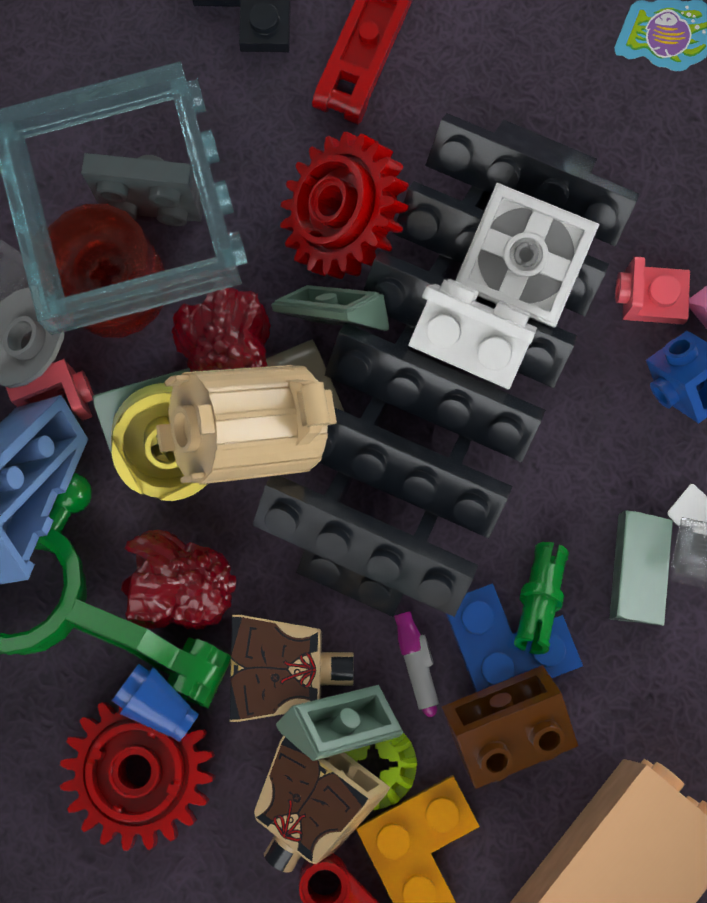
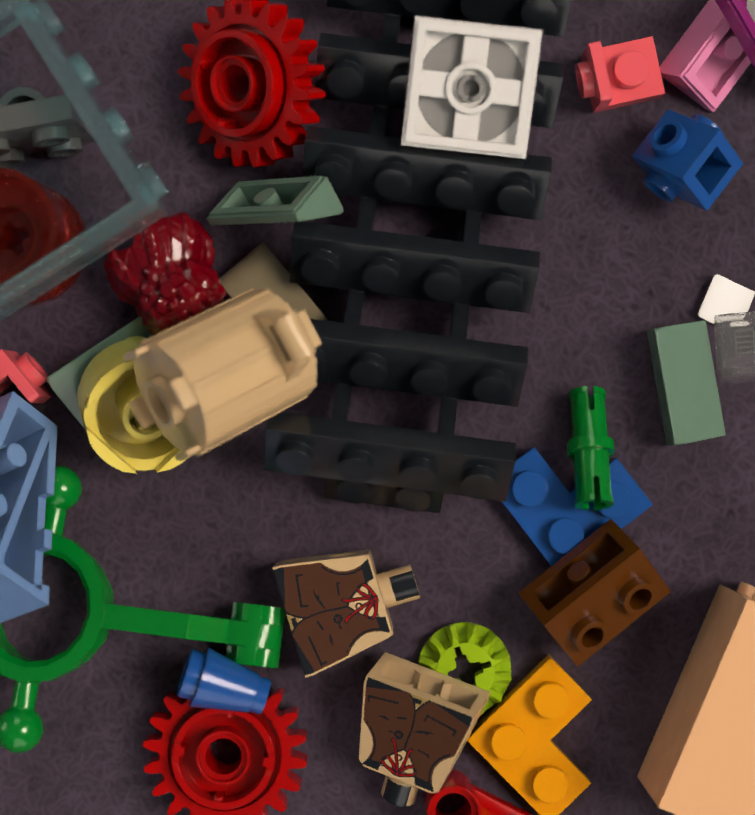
camera: 20 degrees left, 10 degrees up
(176, 582) = (201, 550): dark red hair -> none
(340, 723) = (420, 646): sand green slope -> none
(418, 660) = (479, 549): light grey piece -> none
(472, 334) = (439, 193): white bracket -> none

